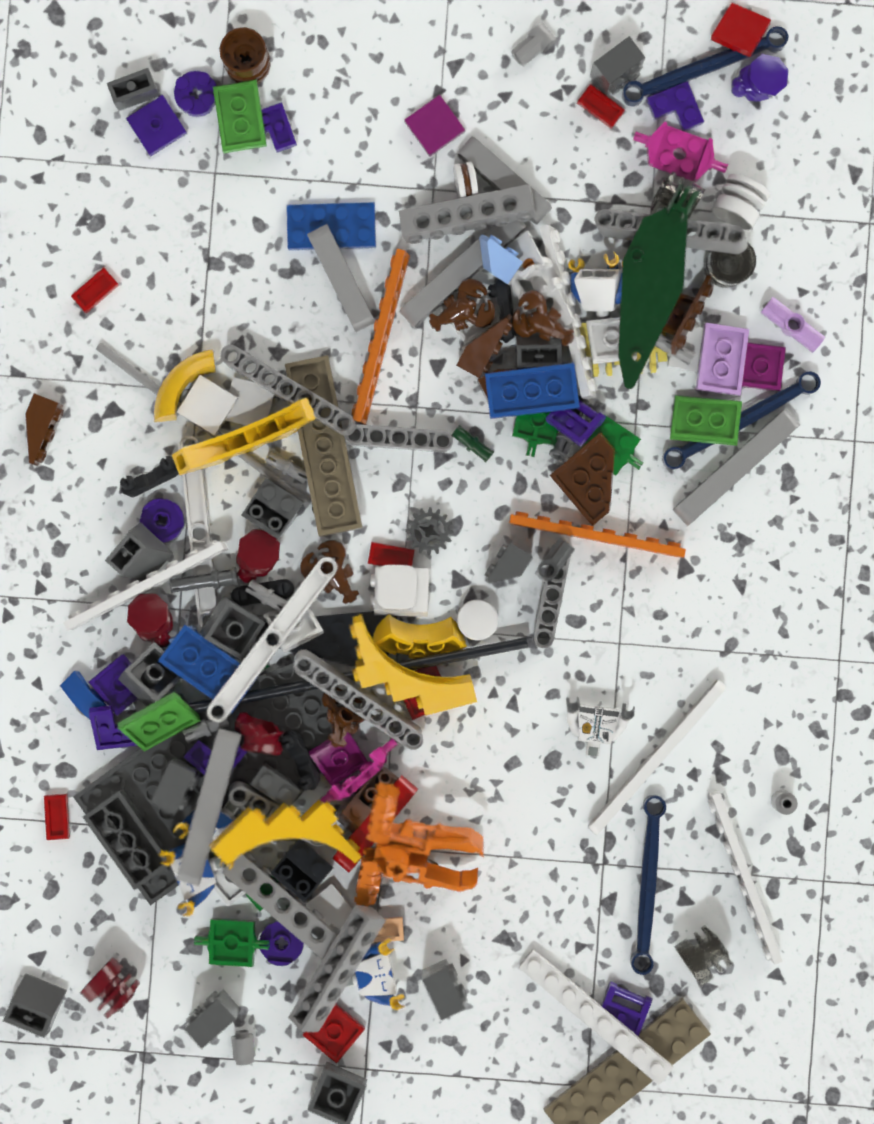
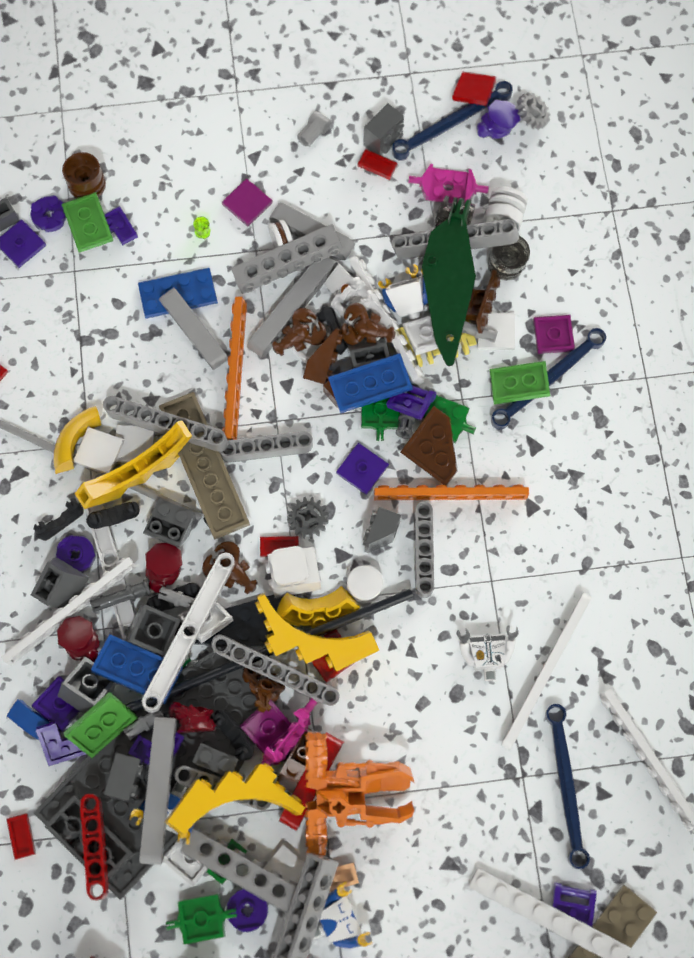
camera: 10 degrees left, 15 degrees down
(127, 862) = (98, 857): none -> red beam
(193, 893) = (157, 874): torso -> none
(211, 485) = (113, 515): none -> black piece
(287, 467) = (175, 489): light grey pin -> none
(301, 870) = (253, 834): black slope -> none
(375, 157) = (198, 224): none -> clear neon green bush
(444, 990) = (405, 919): dark grey brick -> none
(472, 443) = (329, 439): dark green pin -> none
(497, 260) = (319, 288): light blue slope -> none
(502, 485) = (362, 468): none -> dark purple plate
(556, 559) = (420, 516): dark grey piece -> none
(677, 100) = (438, 149): dark purple plate -> none
(703, 955) = (634, 835): clear smoke wheel -> none
(722, 359) = (521, 332): lavender plate -> none
(736, 467) = (553, 415): light grey beam -> none
(778, 799) = (663, 689): light grey brick -> none
(780, 315) = (560, 291): lavender piece -> none
(805, 75) = (533, 110): none -> light grey gear

